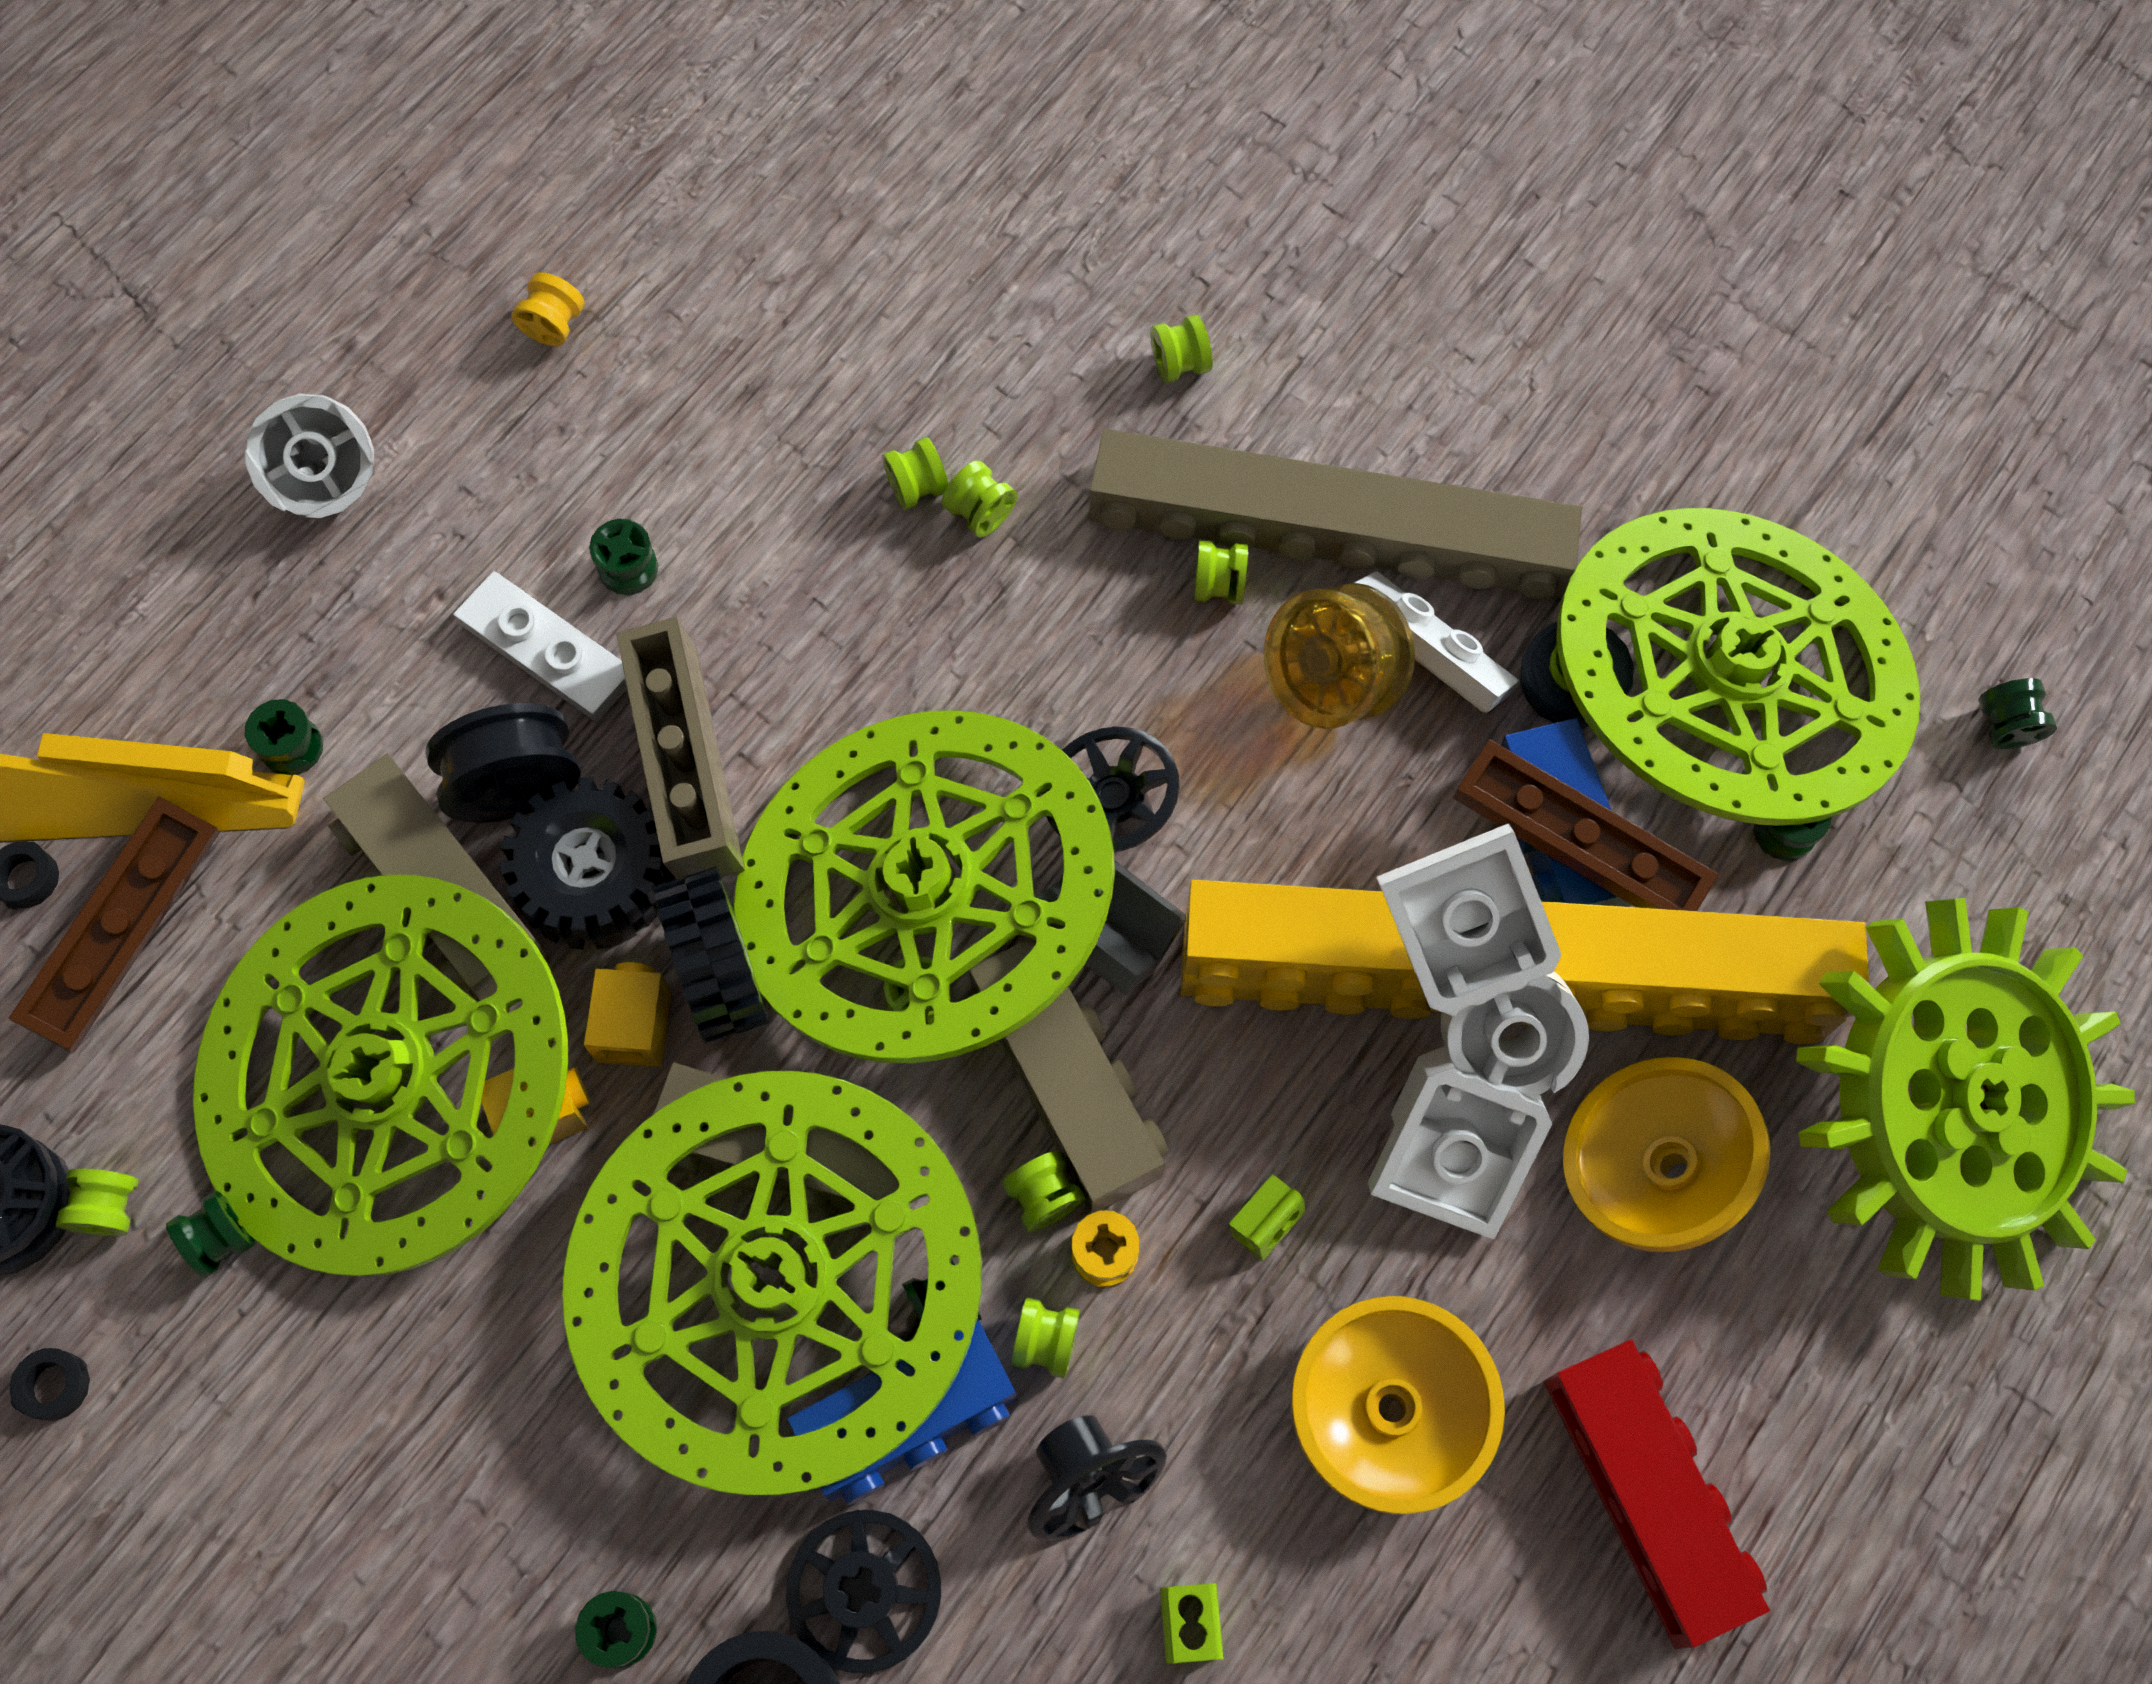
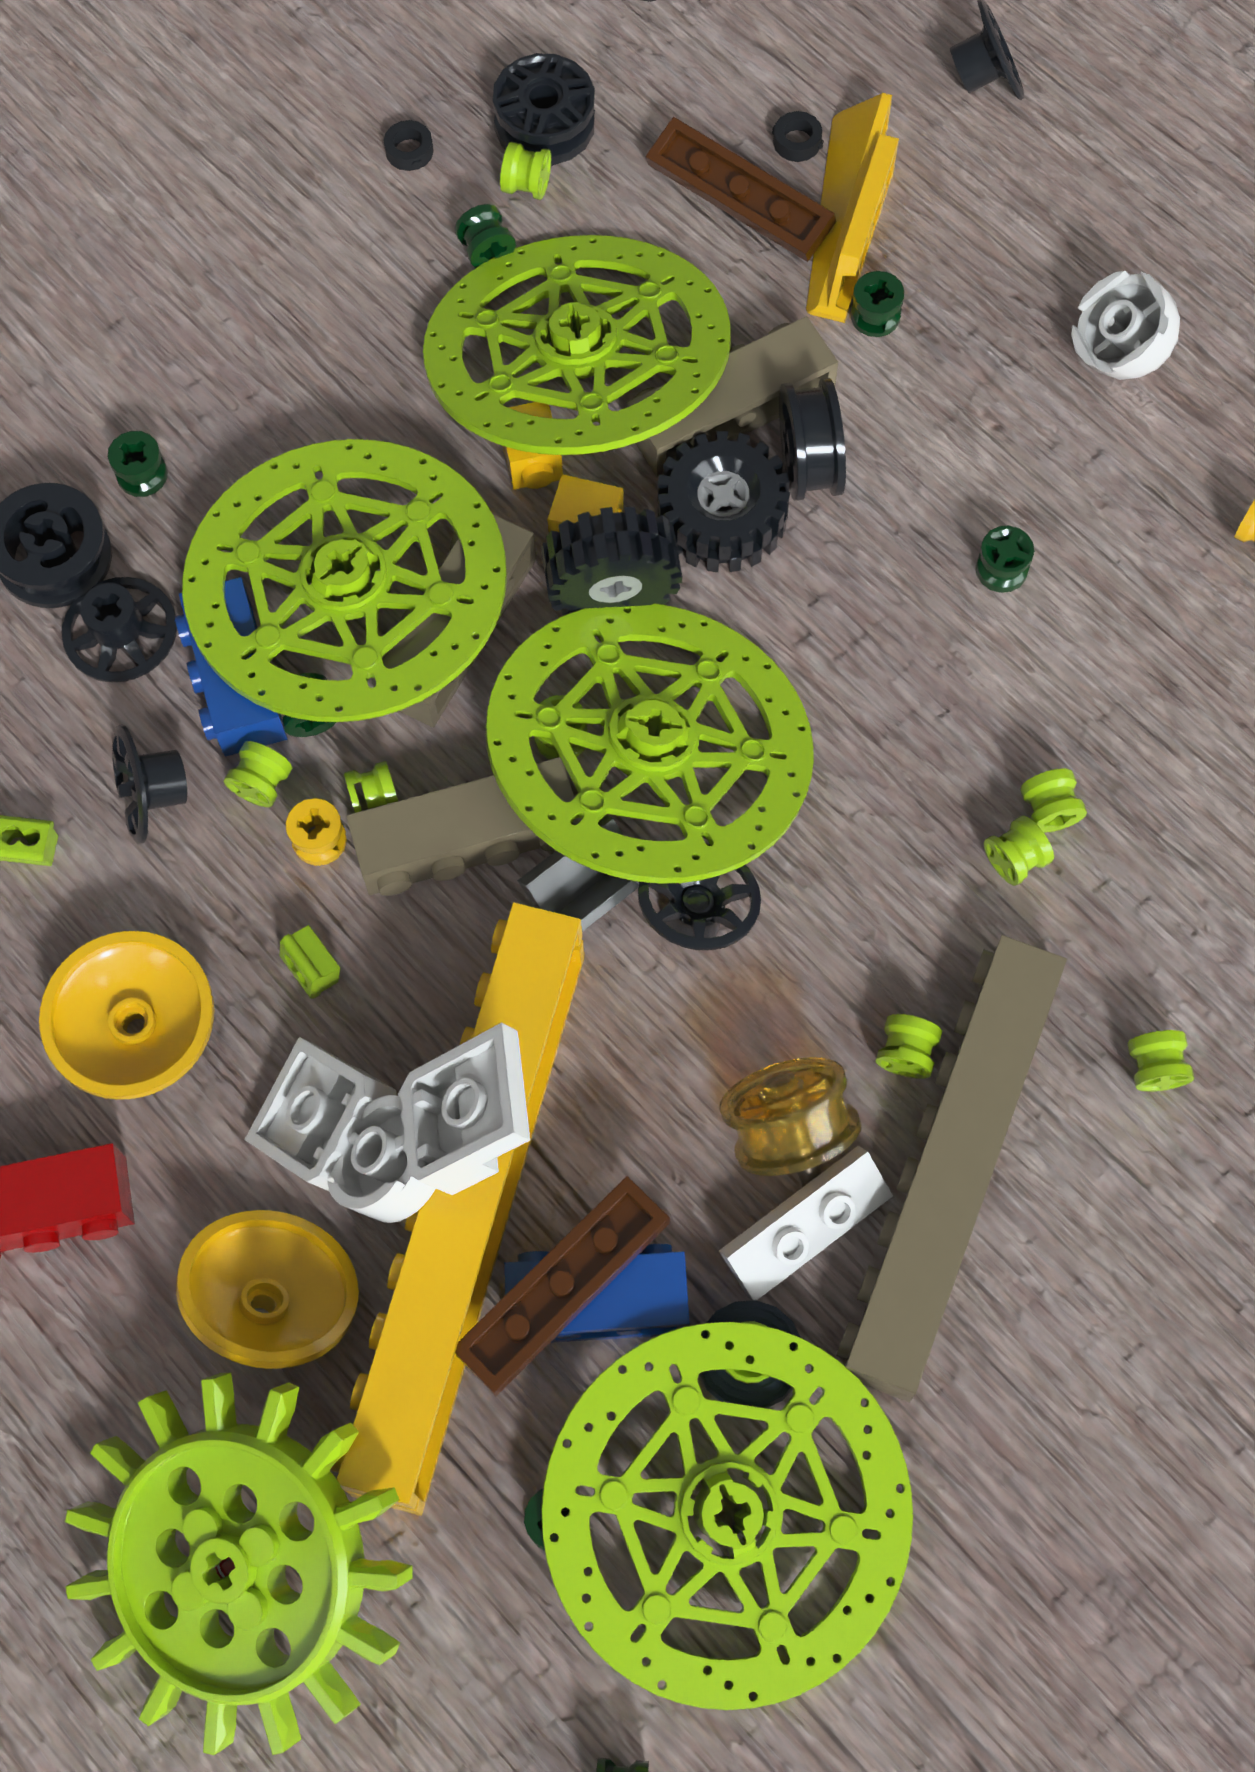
camera: 105 degrees right, 0 degrees up
(544, 645) = (931, 495): white plate -> none
(679, 750) = (804, 571): dark tan brick -> none

